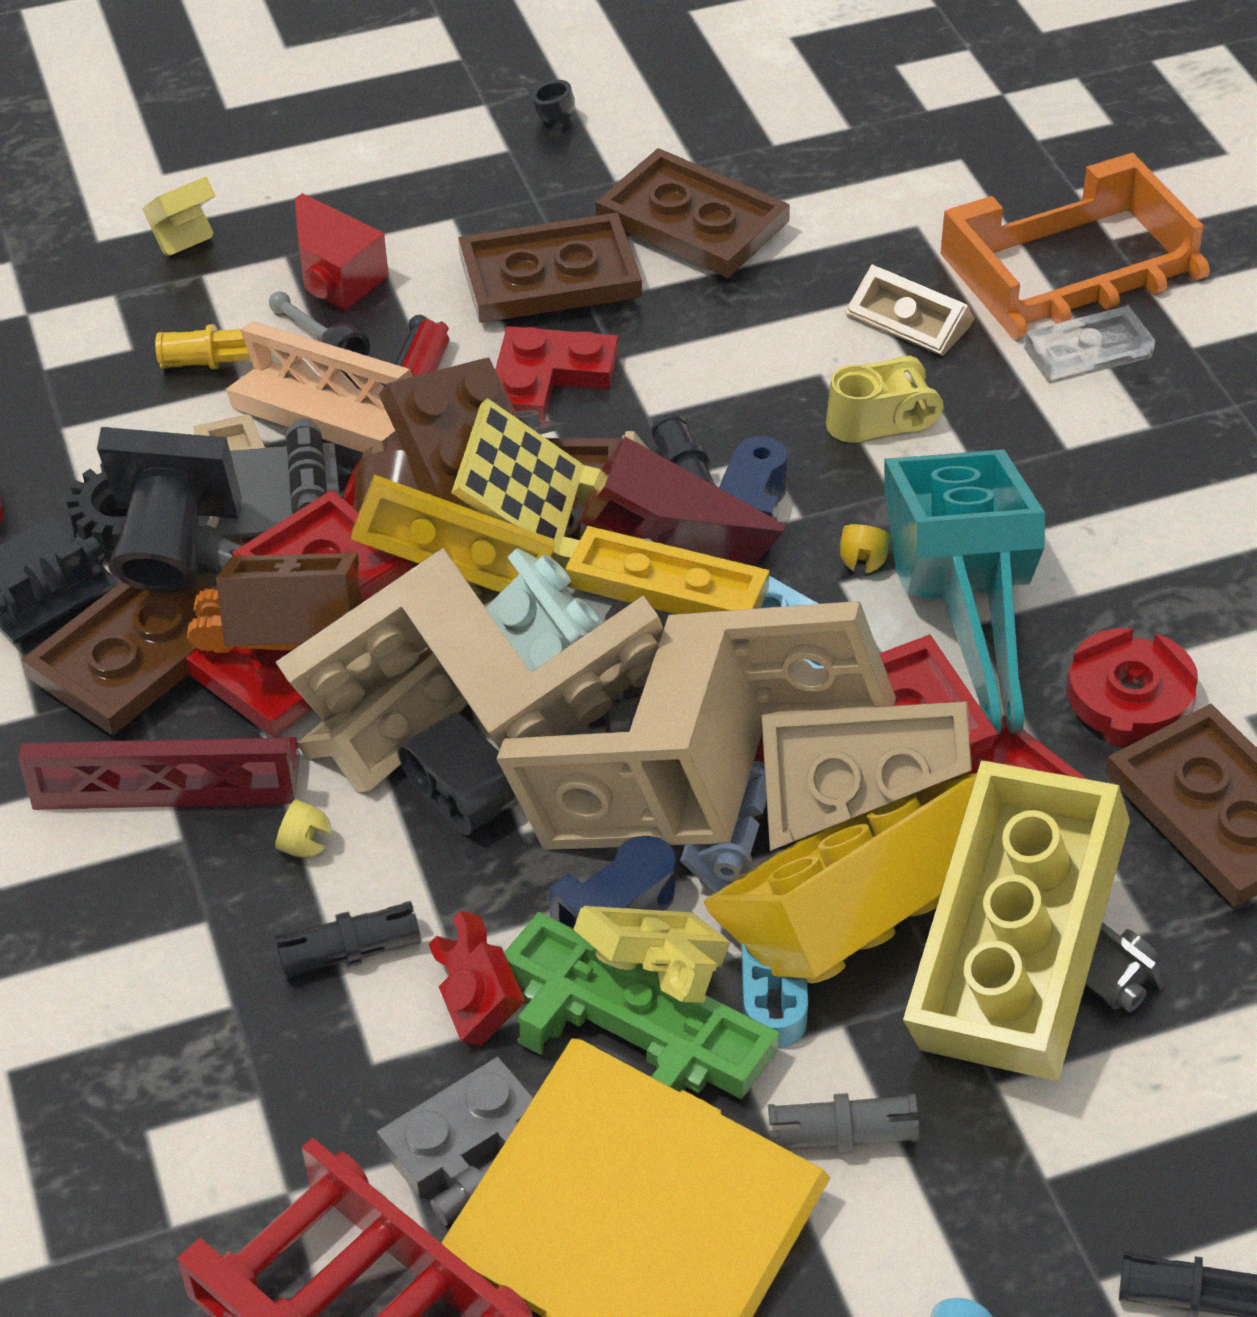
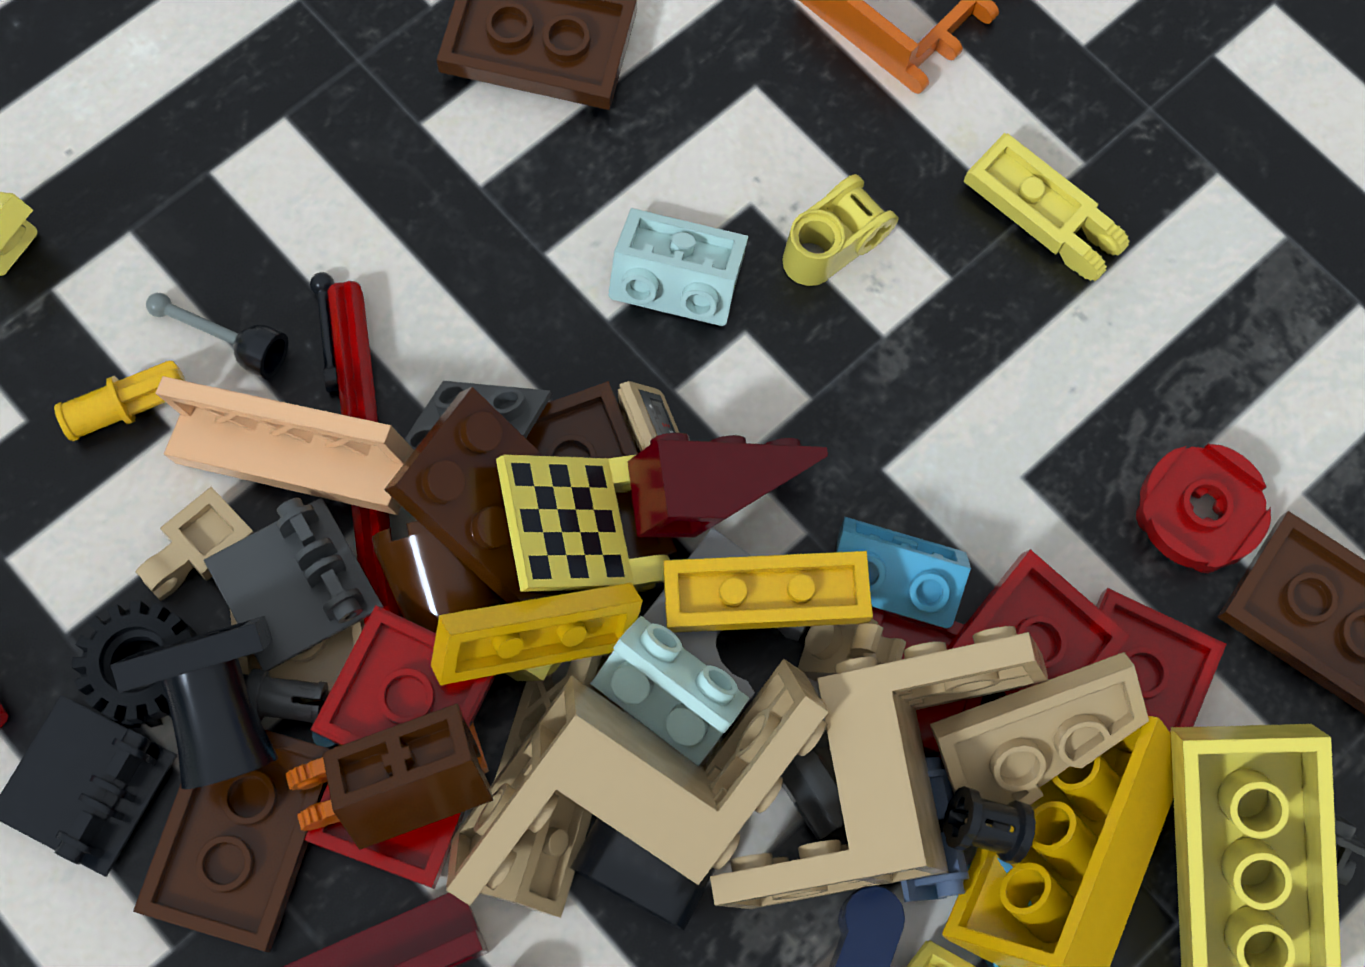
camera: 30 degrees left, 25 degrees up
(338, 253) = (193, 224): red slope -> none
(538, 359) = (468, 291): red plate -> none
(549, 267) = (425, 163): reddish brown plate -> none
(678, 446) = (682, 384): black pin -> none
(724, 388) = (676, 266): none -> light aqua bracket
(758, 474) = (758, 391): dark blue leg -> none
(782, 809) = (1008, 845): none -> black bush
(864, 544) = (896, 428): yellow hinge -> none
(909, 311) = (806, 98): tan slope -> none
(962, 528) = (999, 399): teal slope -> none
(1089, 344) = (998, 86): clear plate -> none
(1091, 436) = (1046, 205): none -> light yellow hinge

